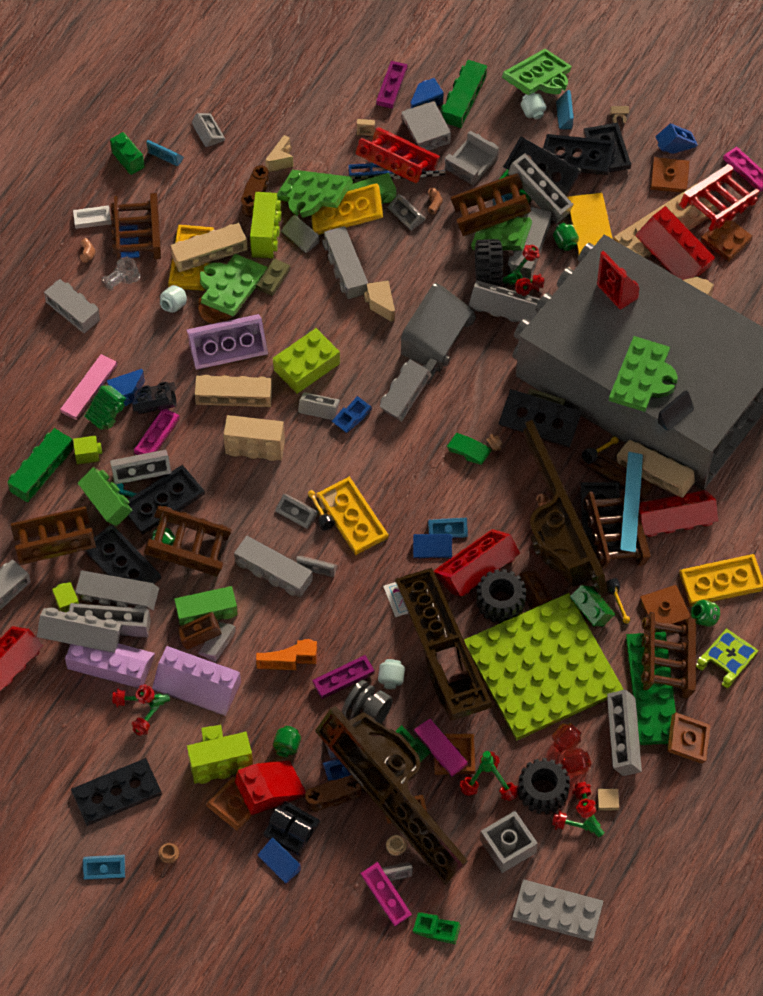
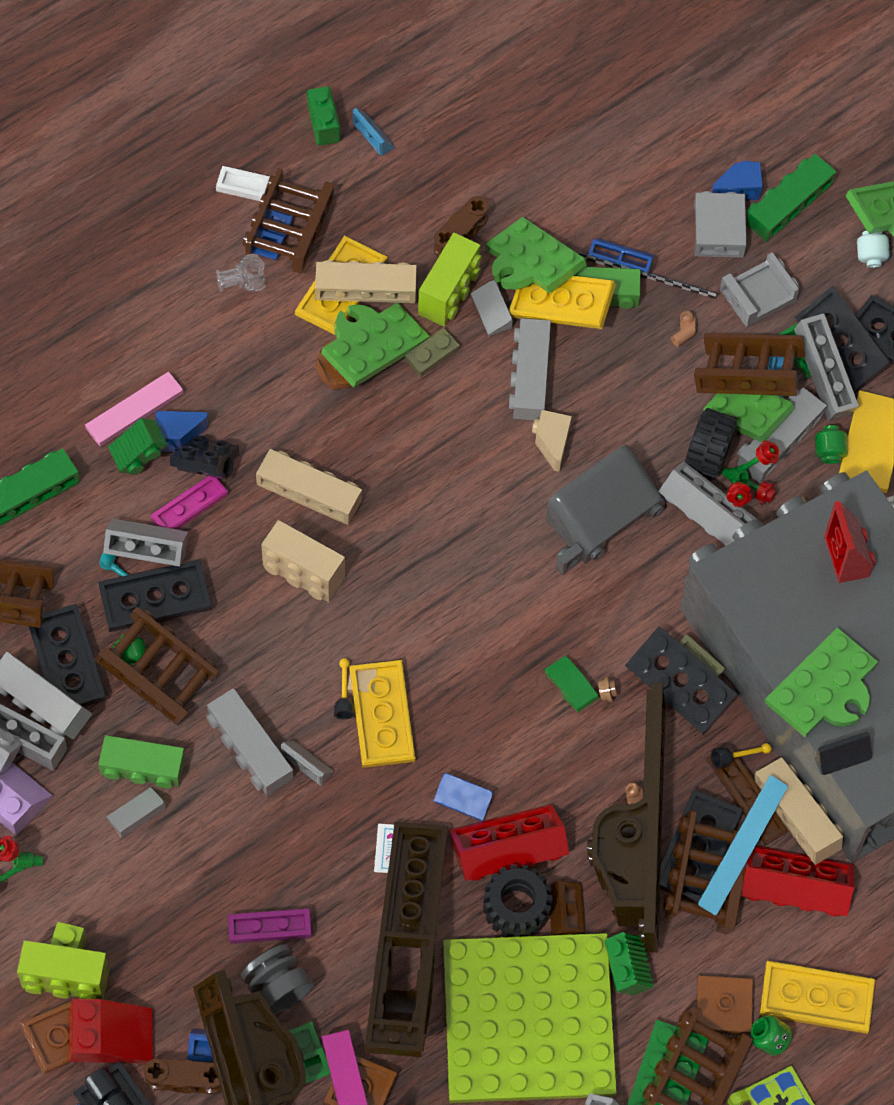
camera: 20 degrees right, 5 degrees up
(72, 305) = (162, 293): light grey brick -> none
(87, 449) = (92, 492): lime brick -> none
(89, 251) = (217, 228): nougat arm -> none
(105, 496) = (83, 564): bright green brick -> none
(173, 299) = (290, 333): light aqua head -> none
(196, 680) = (84, 855): lavender slope -> none
(199, 631) = (118, 790): reddish brown slope -> none
(207, 129) = (441, 121): light grey slope -> none
(227, 341) = (332, 417): lavender slope -> none
(280, 156) = (512, 193): tan slope -> none
(286, 741) = (158, 982): green head -> none
(296, 511) = (315, 678): light grey slope -> none
(303, 652) = (233, 871): orange slope -> none
(306, 360) = (419, 482): lime piece -> none
(318, 406) = (408, 548): light grey slope -> none
(352, 415) = (445, 578): blue slope -> none
(365, 127) = (642, 195): tan tile -> none
(391, 84) = (703, 149): magenta plate -> none
(391, 673) = (330, 948): light aqua head -> none
(397, 155) = (672, 240): red fence -> none
(405, 390) = (523, 573): light grey brick -> none
(406, 212) = (642, 330): light grey slope -> none
(453, 526) = (496, 778): dark azure slope -> none
(613, 588) = (668, 949): hinge -> none

